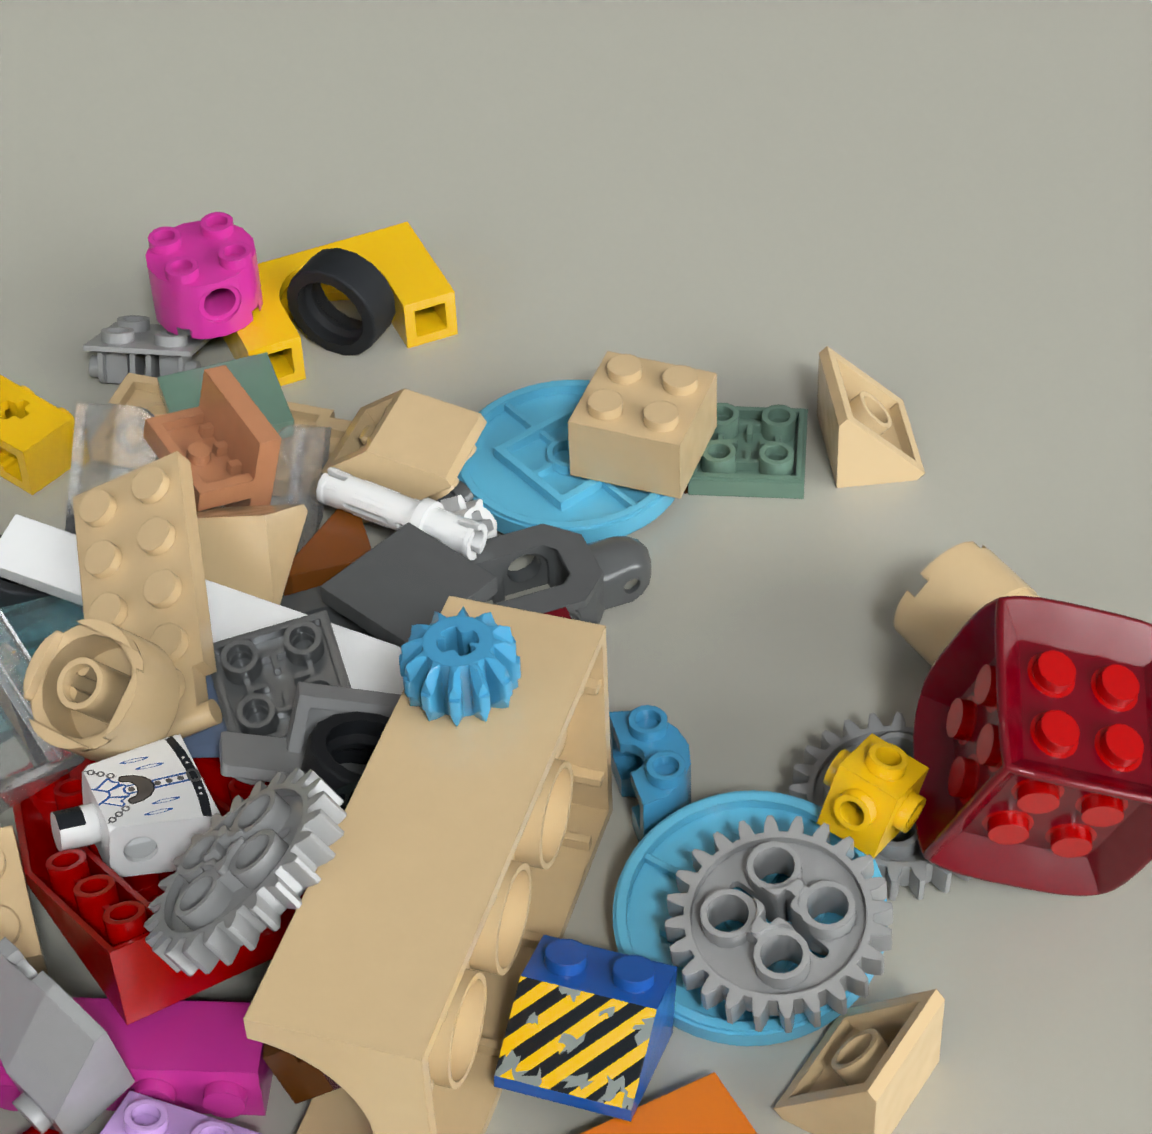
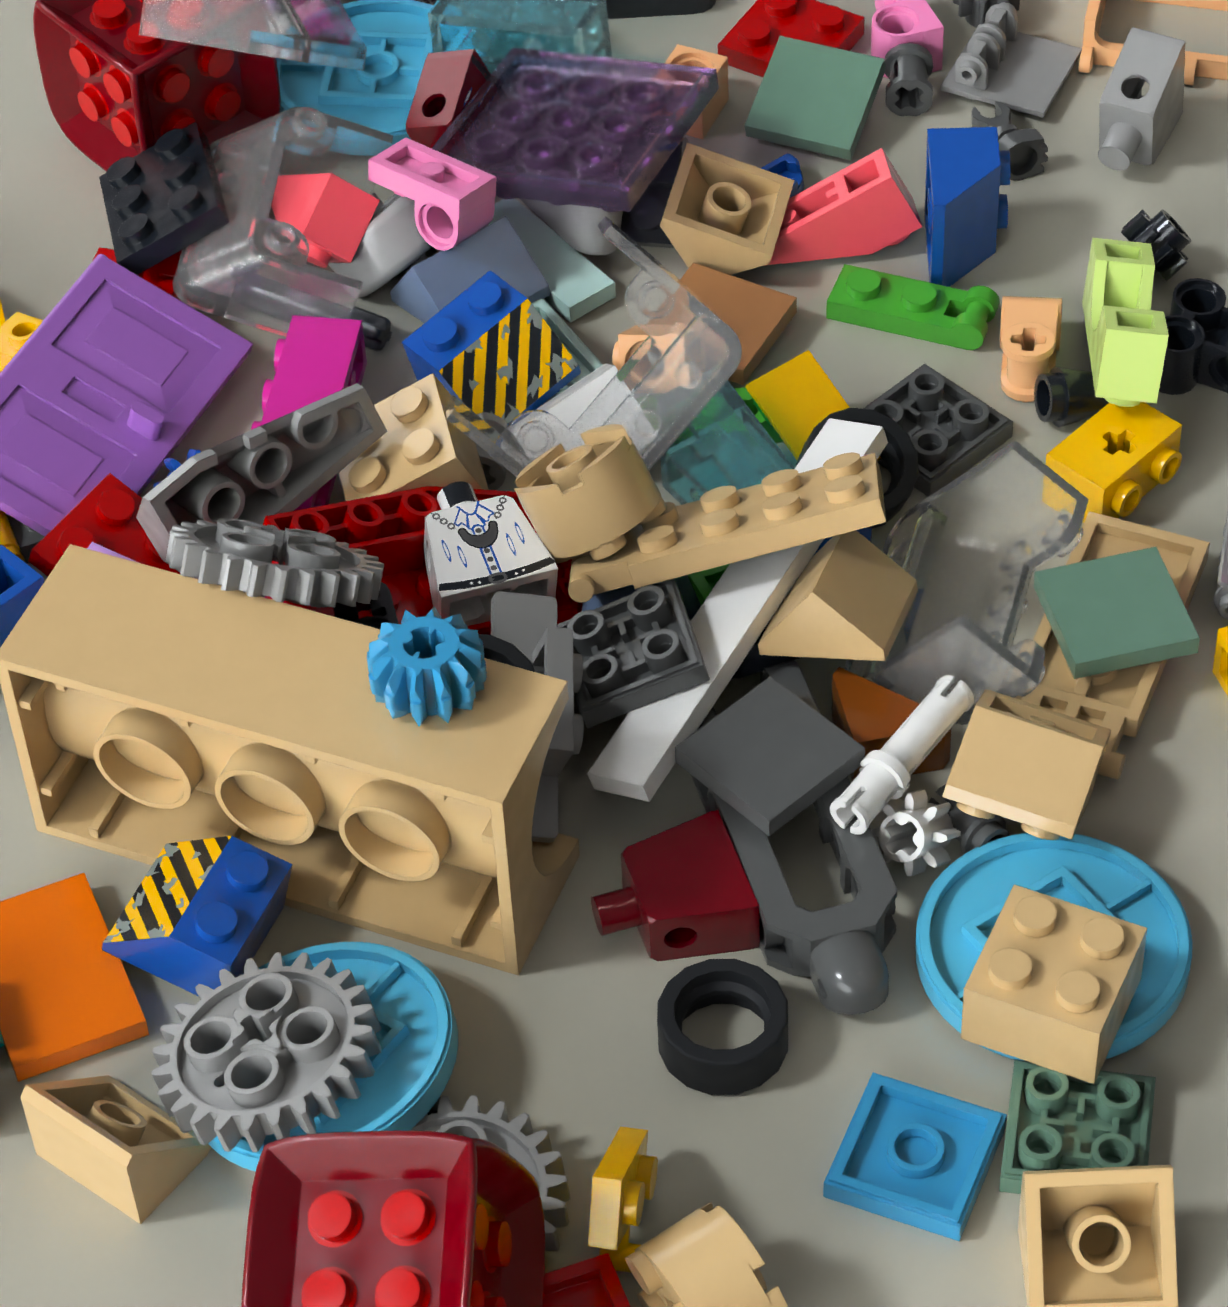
camera: 95 degrees right, 5 degrees up
(225, 440) = (970, 569): nougat bracket -> none
(650, 765) = (519, 992): dark azure cylinder -> none
(677, 680) = (722, 1069): none -> black tyre
(783, 539) = (915, 1156): none -> dark azure tile
(877, 674) = (618, 1194): none -> yellow plate
(880, 783) = (406, 1097): yellow brick -> none

